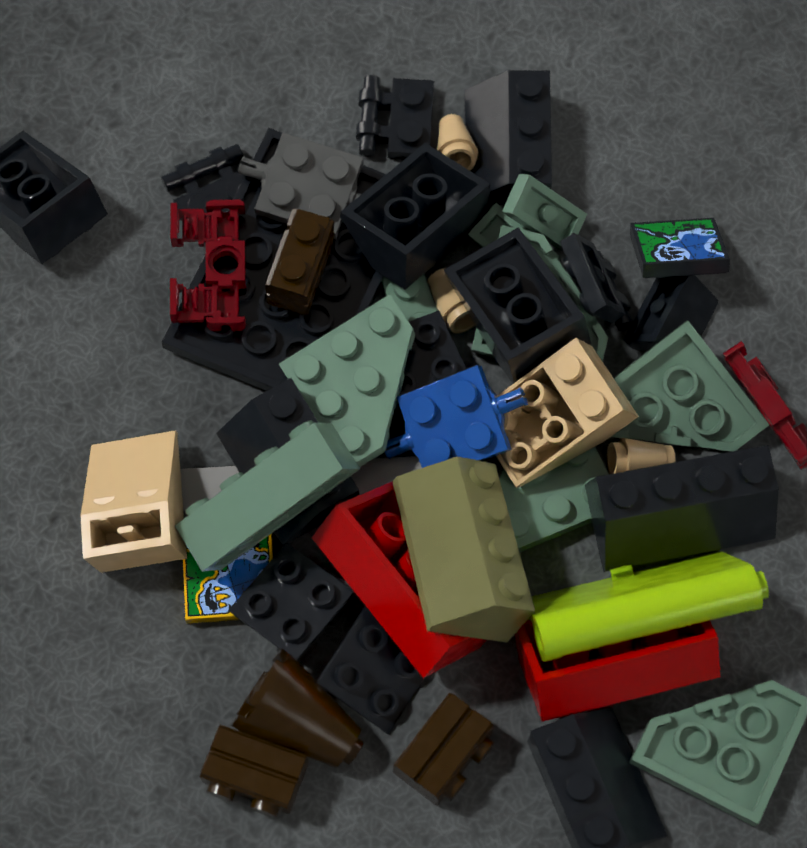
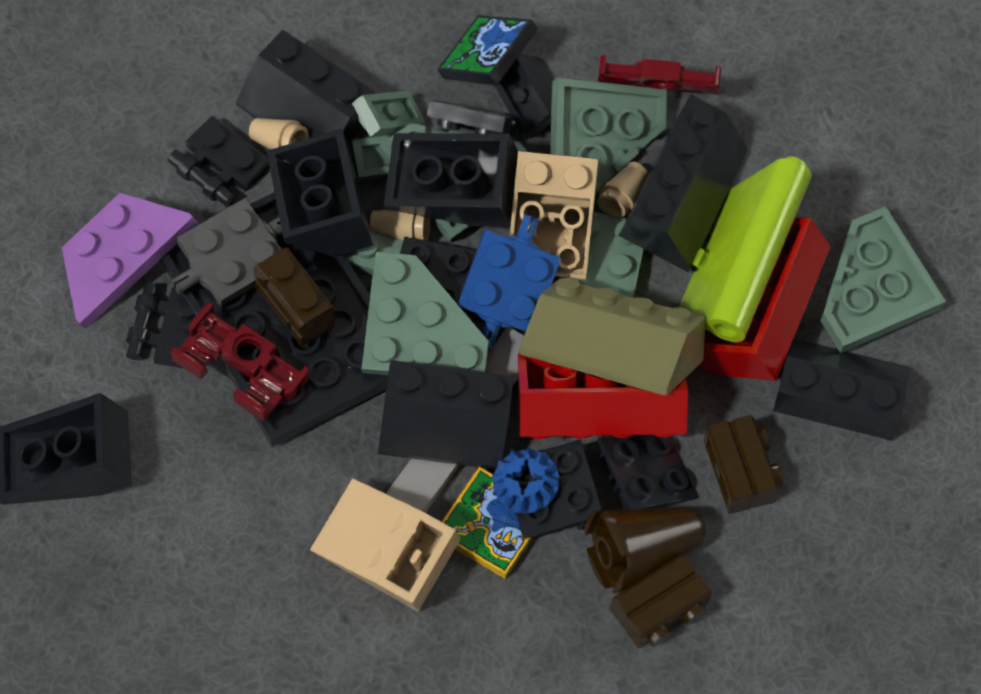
camera: 55 degrees left, 5 degrees down
(243, 100) = (118, 251): none -> medium lavender wing
(266, 495) = (471, 439): sand green brick -> none
(270, 590) = (538, 493): none -> blue gear

